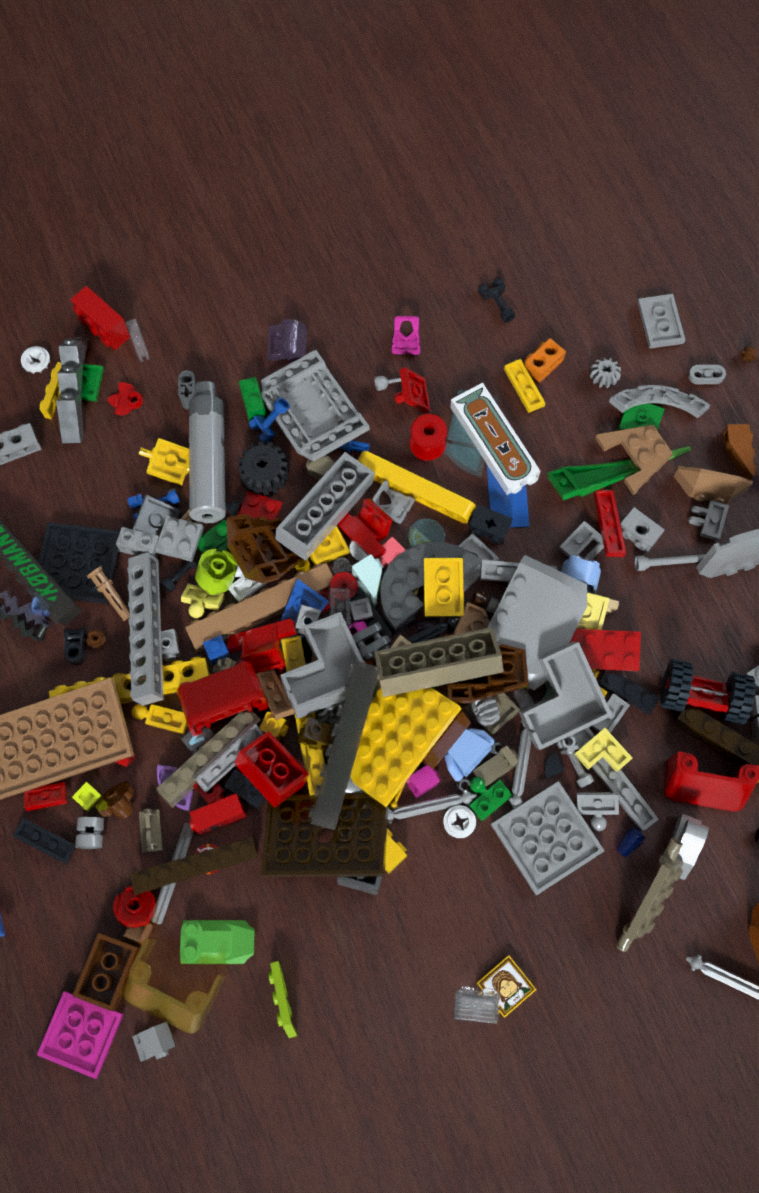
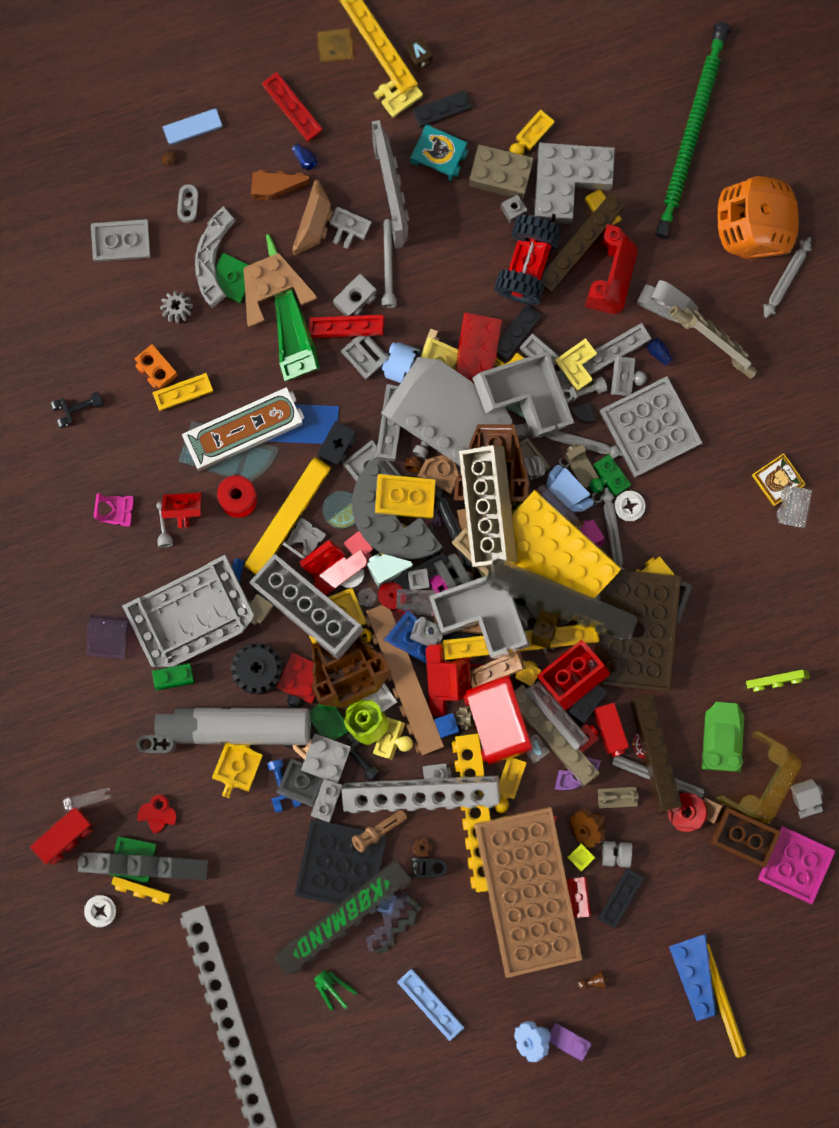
camera: 90 degrees left, 10 degrees up
(280, 406) = (194, 643): blue bar -> none

